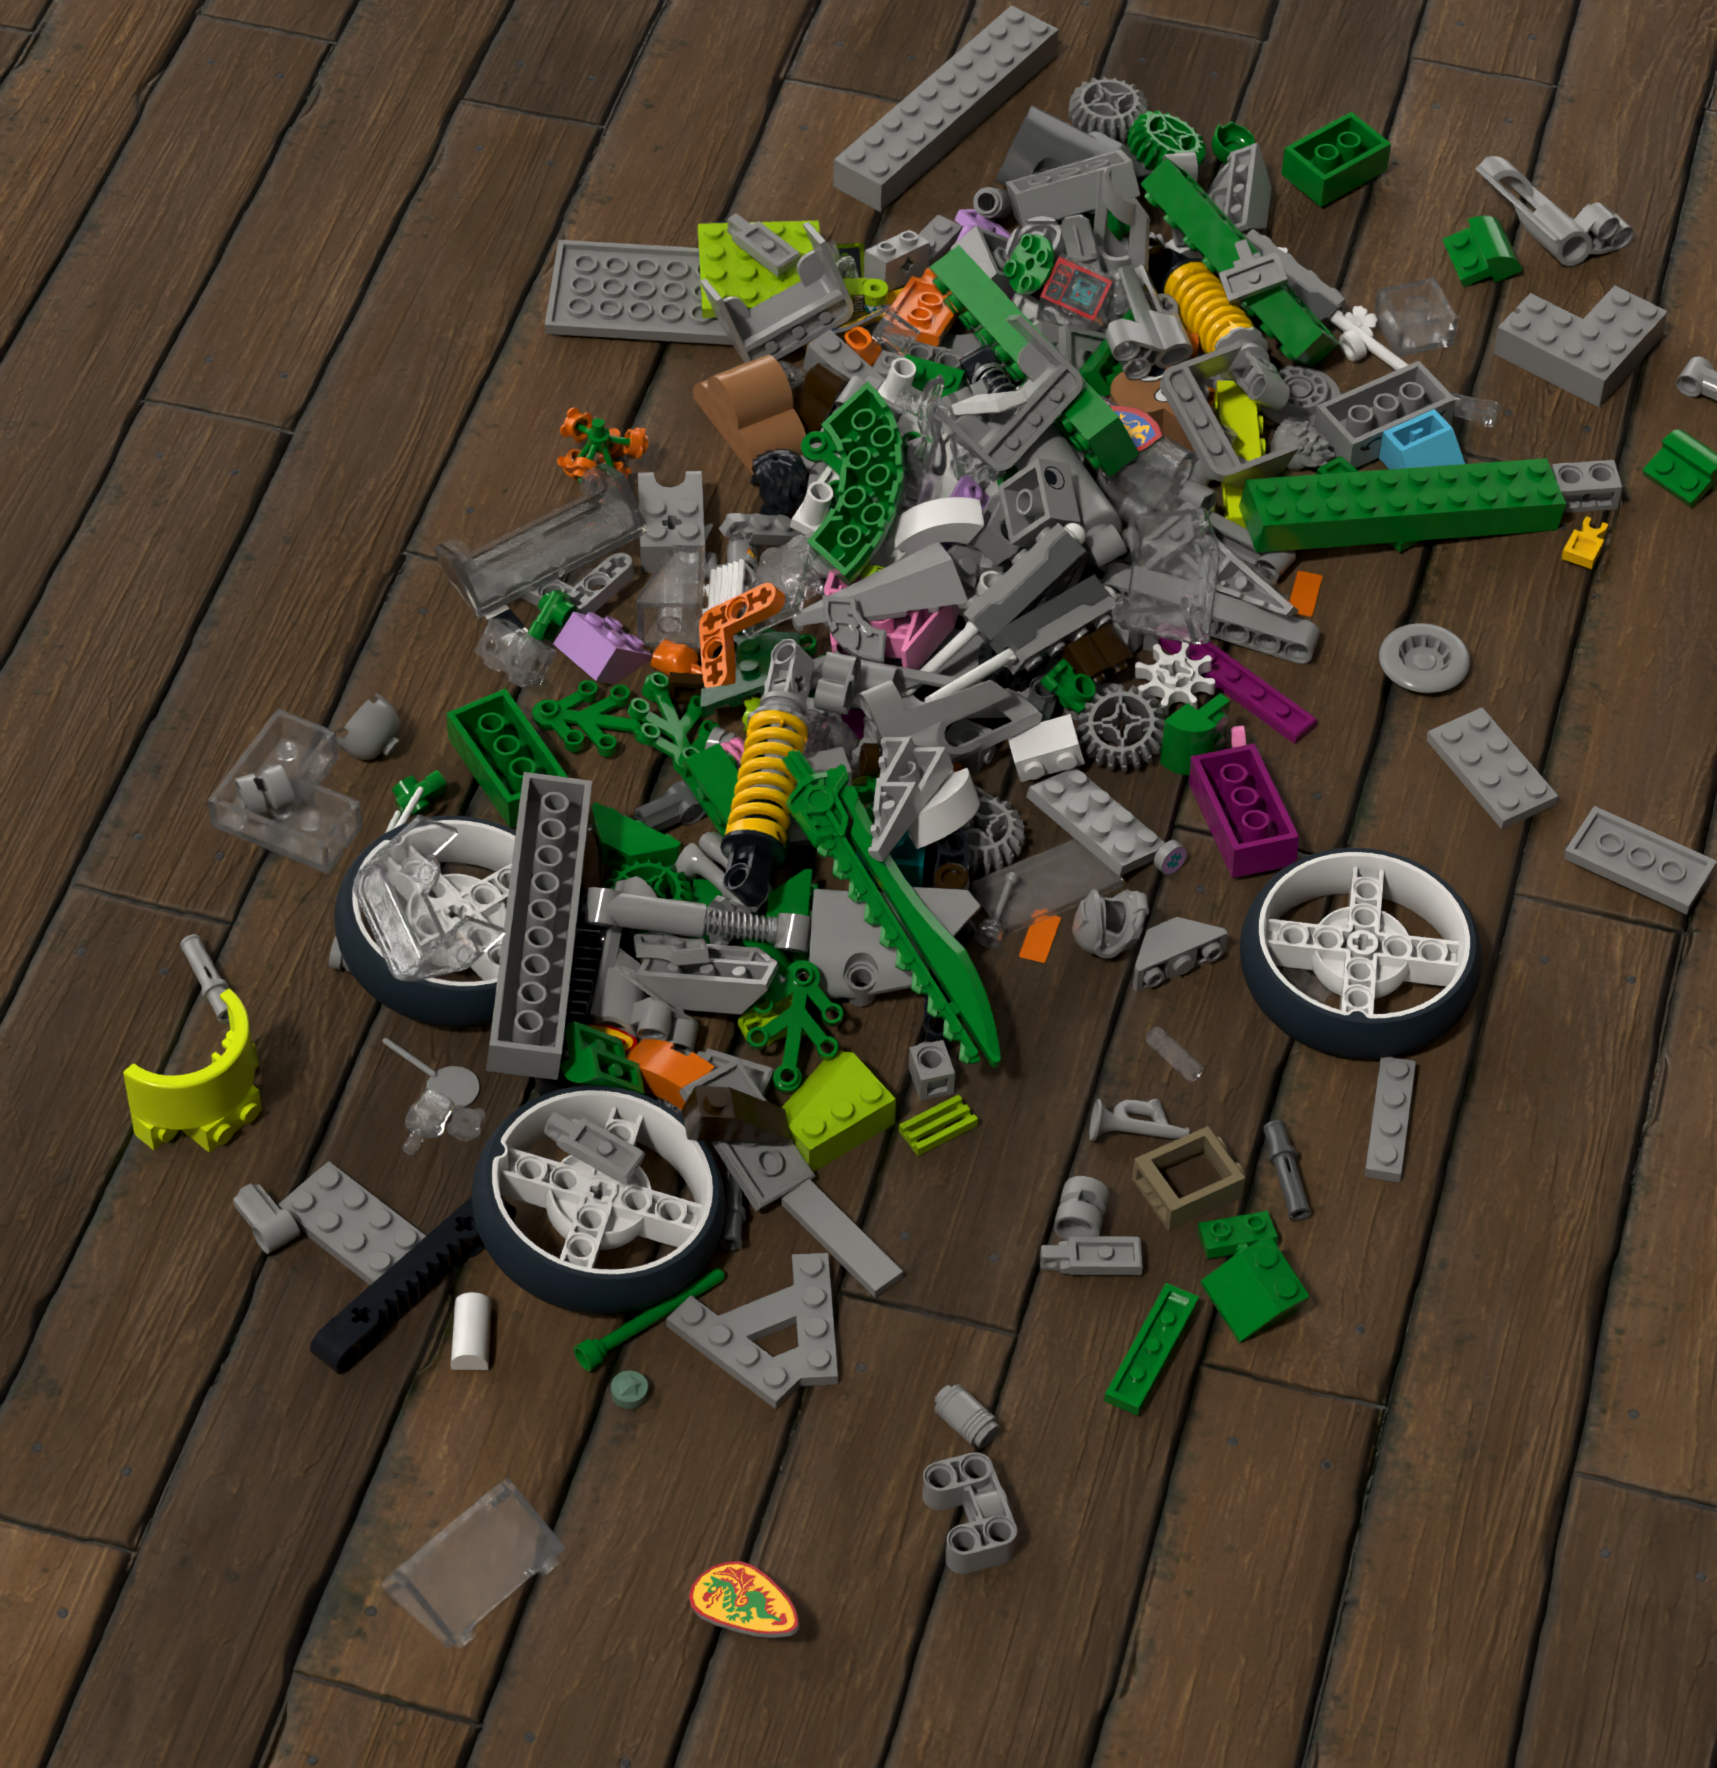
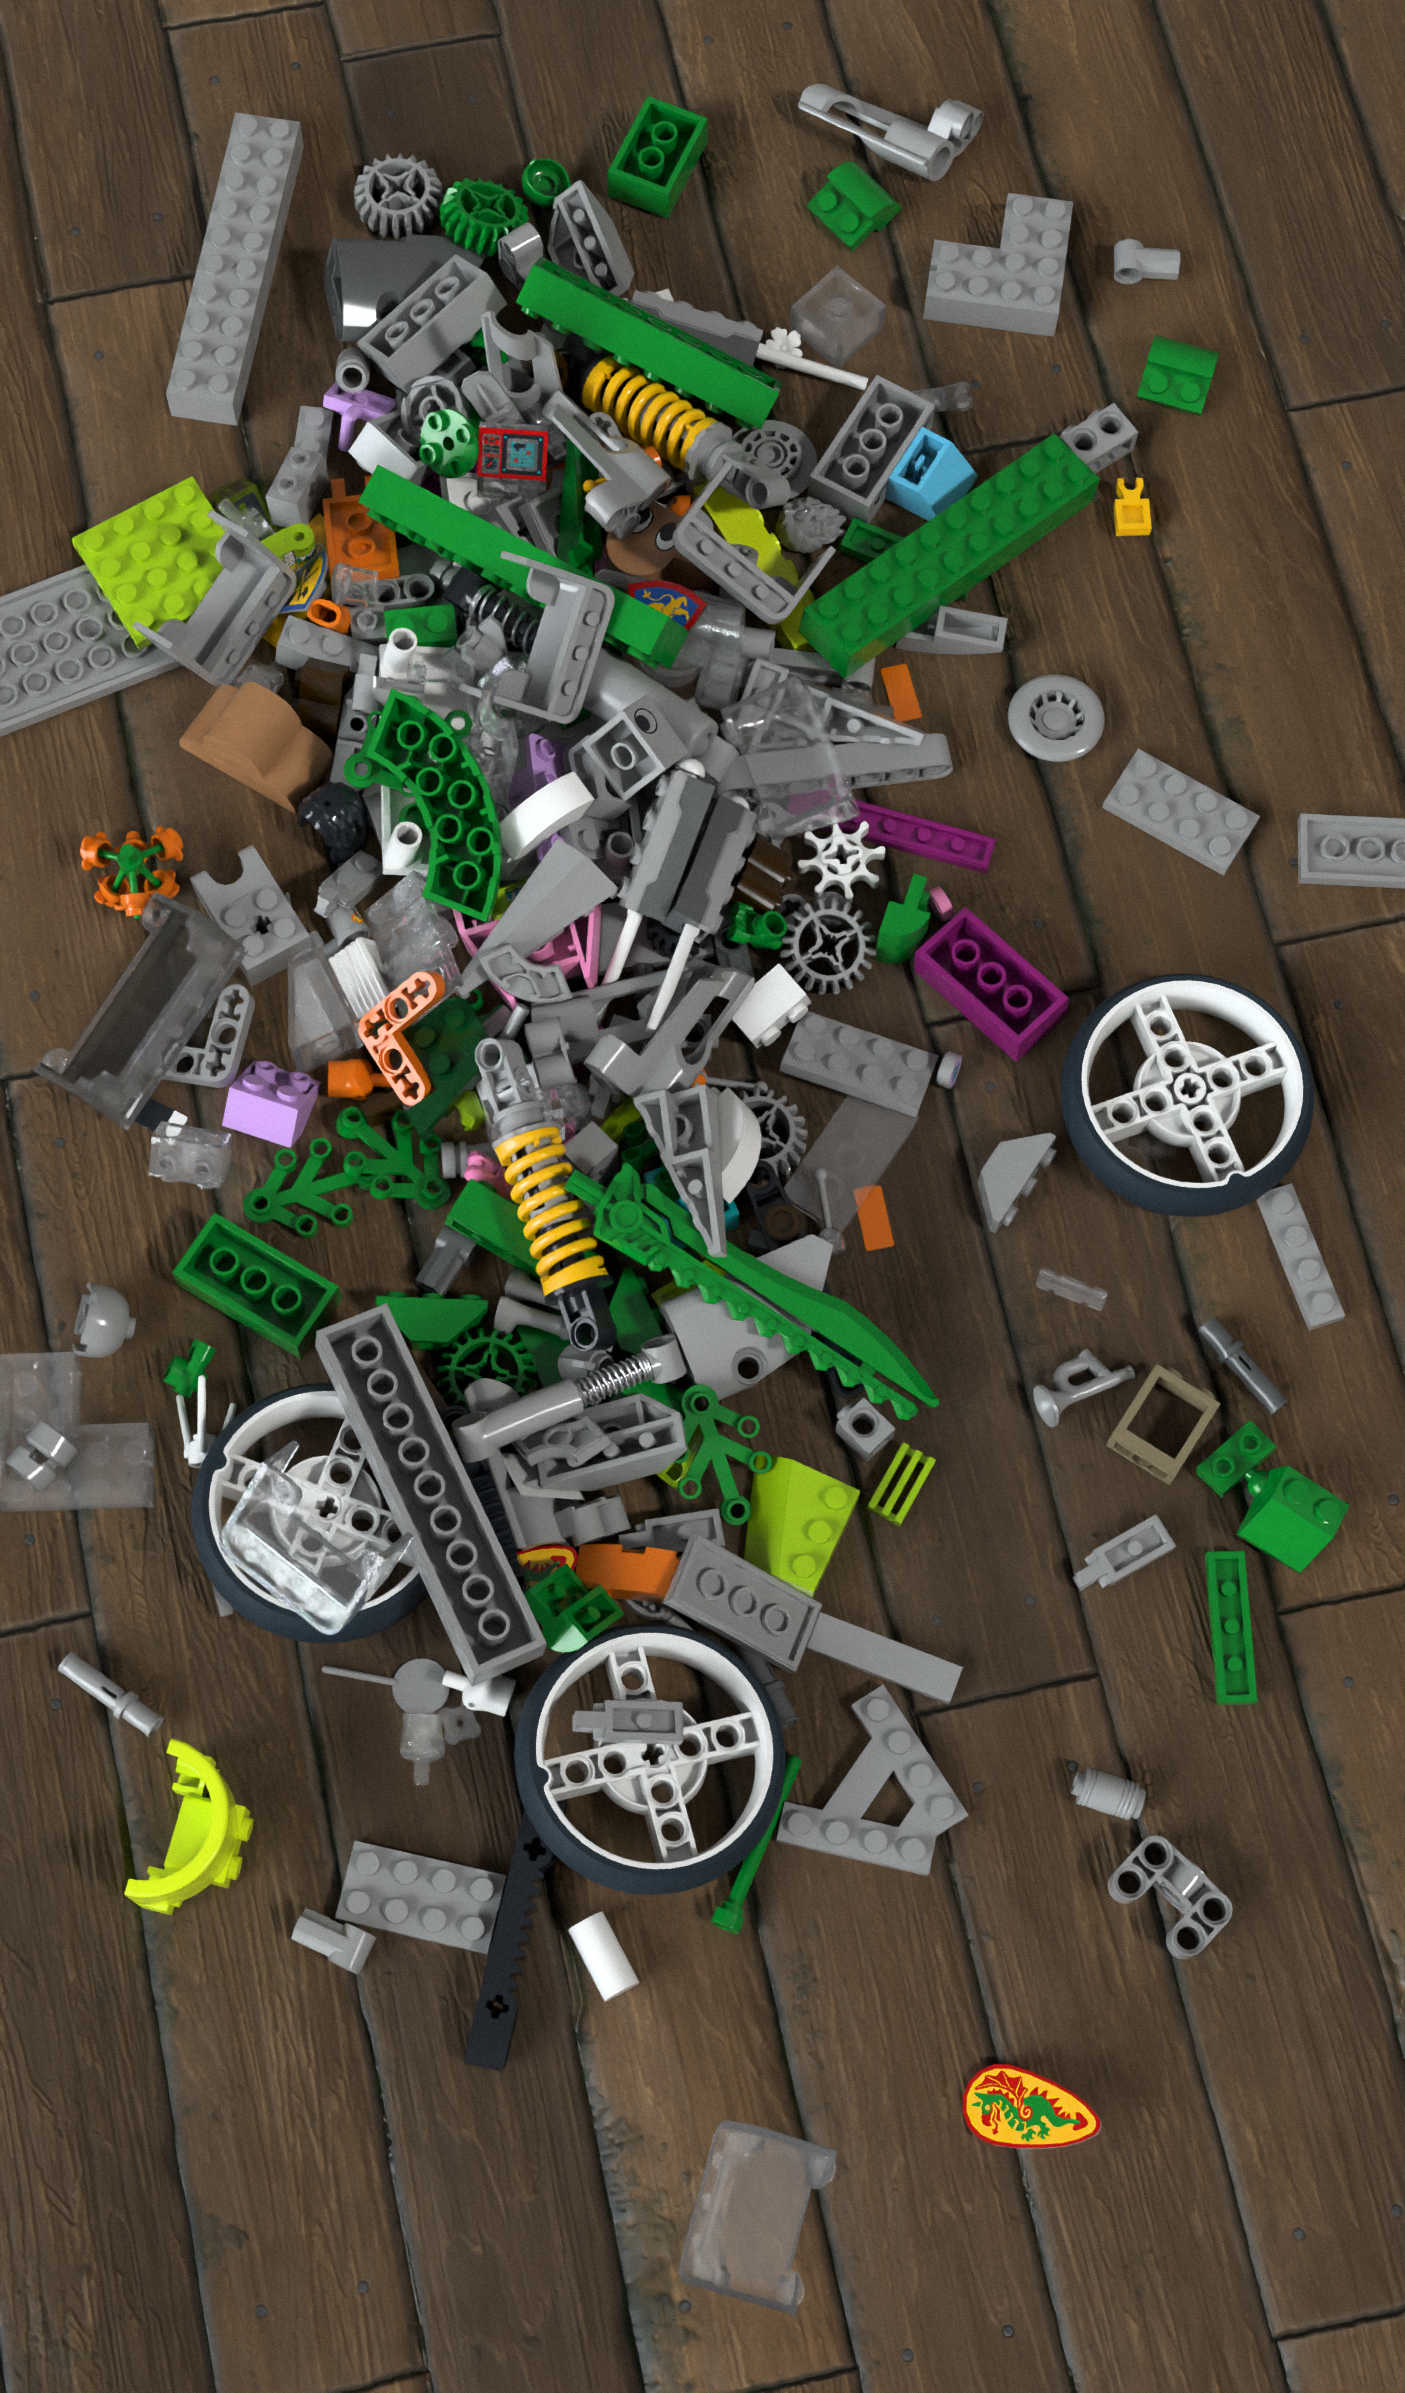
camera: 30 degrees left, 20 degrees up
(494, 1105) = (487, 1696): none -> white piece
(554, 612) = (207, 1091): green plate -> none
(629, 1389) = (785, 1934): sand green tile -> none
(733, 1116) = (734, 1606): dark brown slope -> none
(762, 245) = (159, 540): light grey hinge -> none
(869, 759) = (617, 1113): dark brown tile -> none
(989, 403) = (521, 651): white tile -> none
(1081, 1207) = (1097, 1523): light grey wheel -> none
(1100, 921) = (929, 1186): light grey helmet -> none
(1252, 274) = (682, 360): light grey hinge -> none
(1352, 345) = (792, 377): white tile -> none
(1373, 564) = (957, 633): none -> light grey slope

